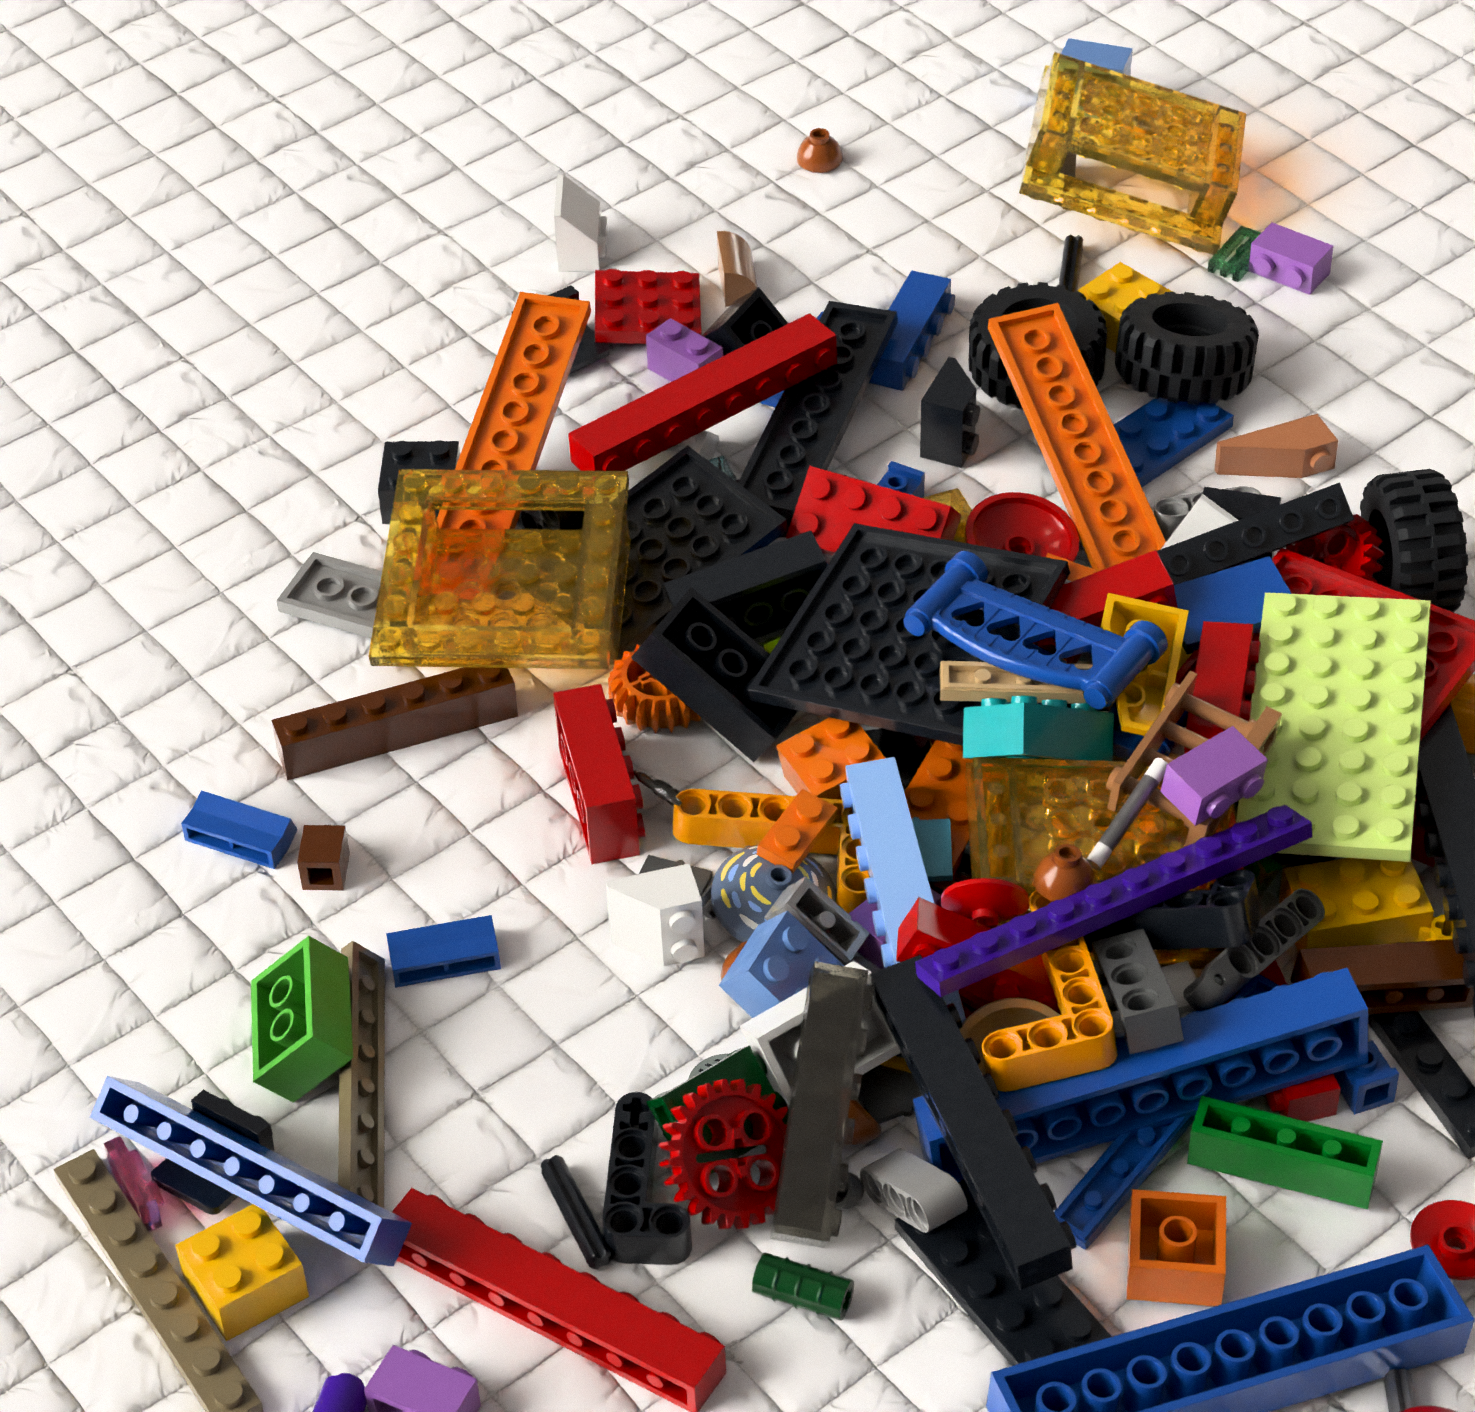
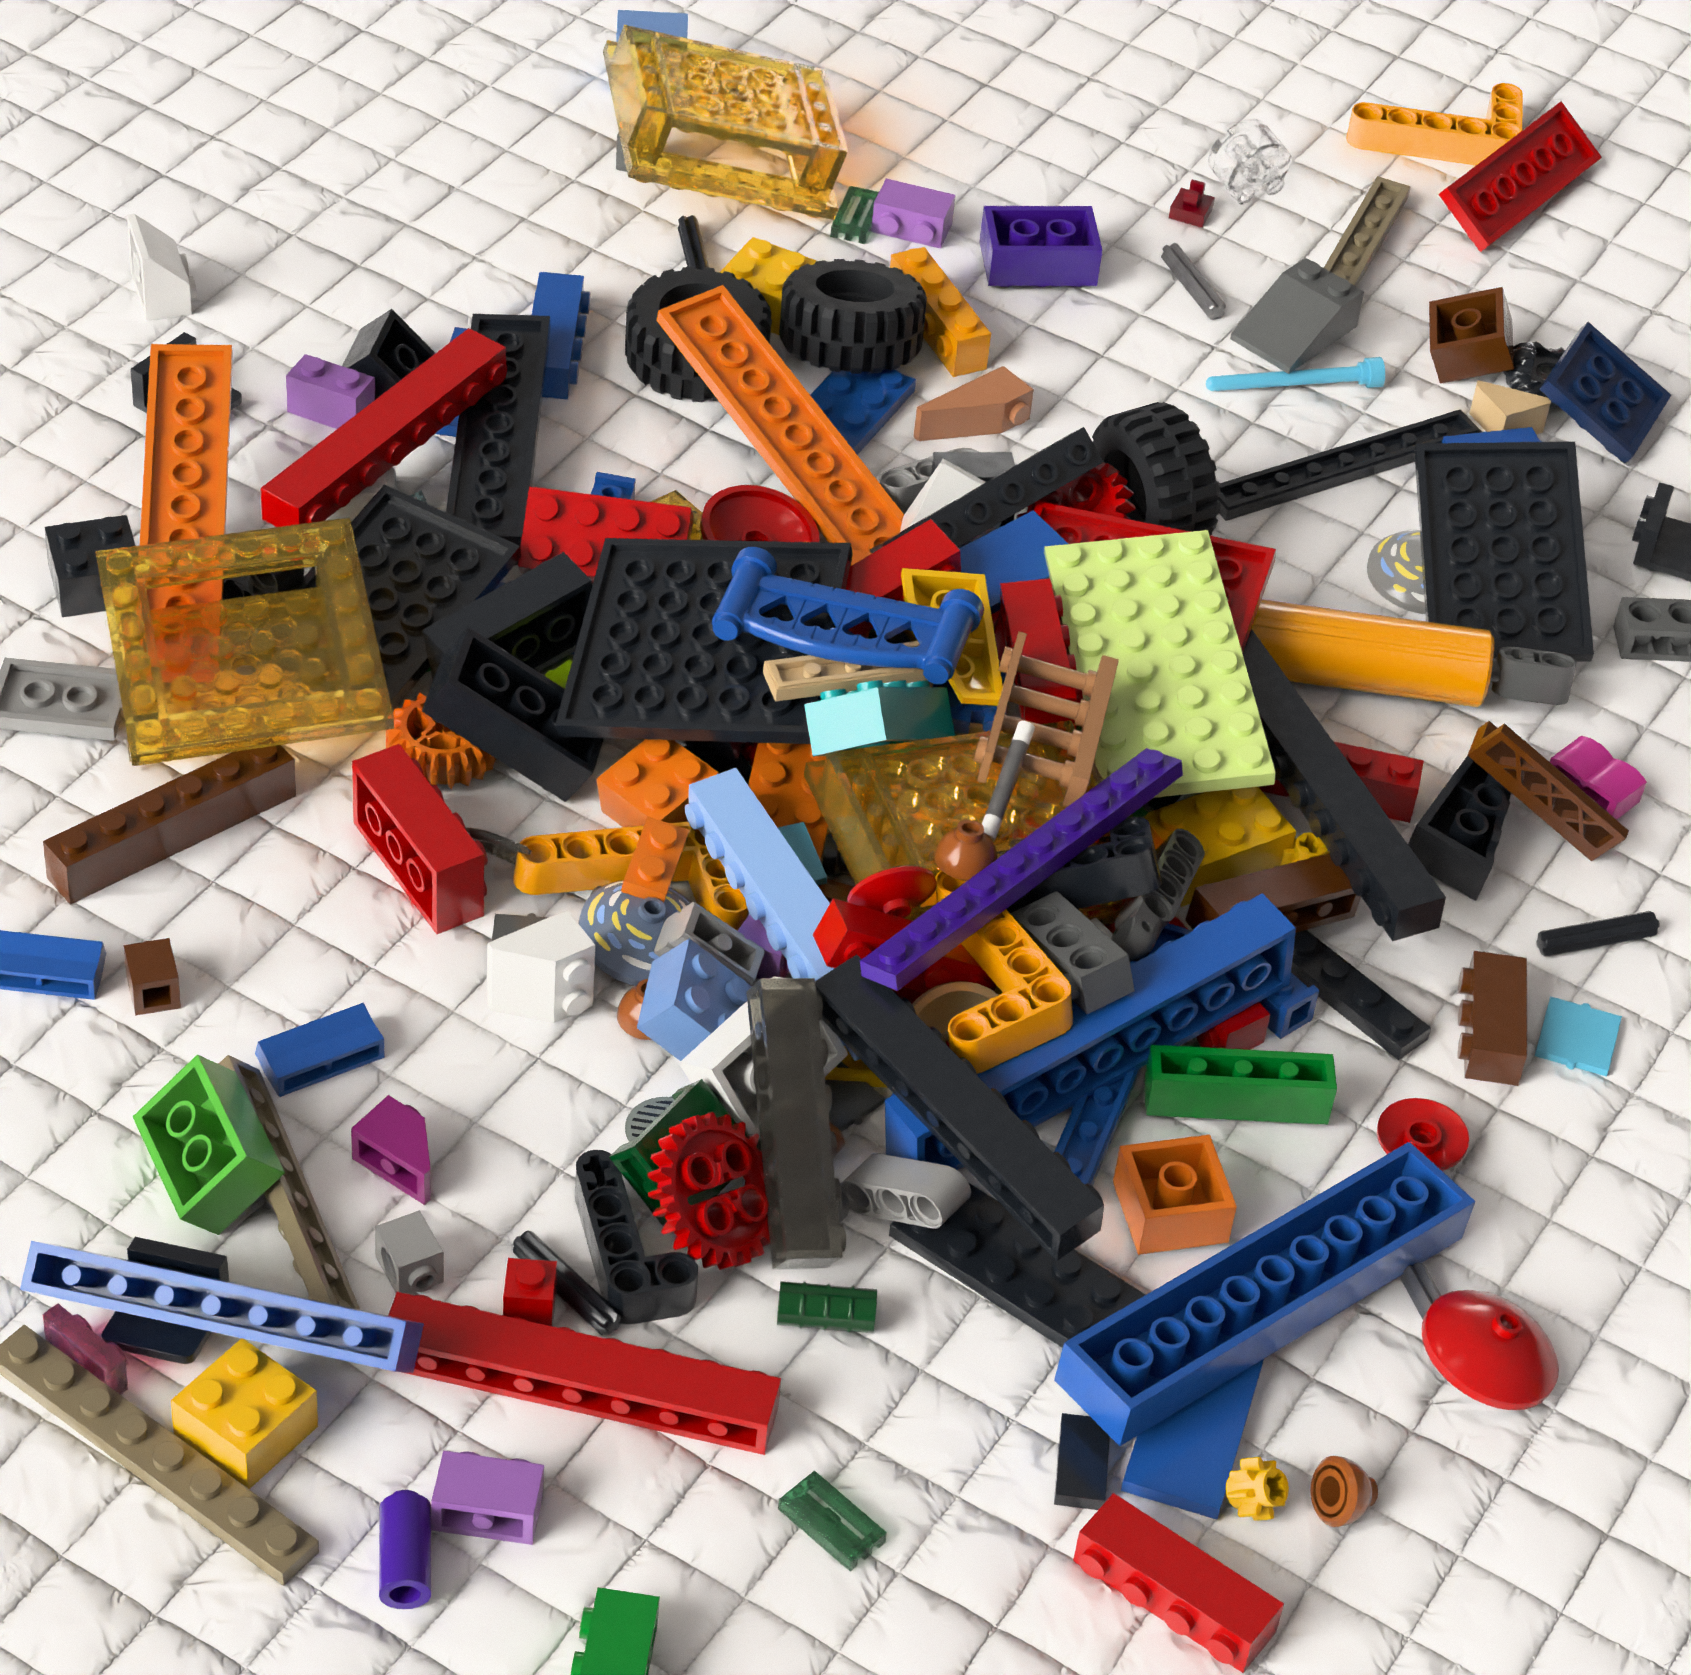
camera: 25 degrees left, 0 degrees up
(443, 1155) = (409, 1254): none -> light grey brick
(471, 1052) = (395, 1147): none -> magenta slope
(533, 1214) = (530, 1290): none -> red brick
(639, 301) = (264, 341): red plate -> none
(735, 266) = (344, 294): medium nougat brick -> none
(819, 152) = (384, 159): dark orange brick -> none
(949, 417) = (641, 418): black slope -> none
(1214, 776) = (1085, 729): medium lavender brick -> none
(1280, 356) = (950, 322): none -> light orange brick
(1400, 304) = (1040, 246): none -> dark purple brick

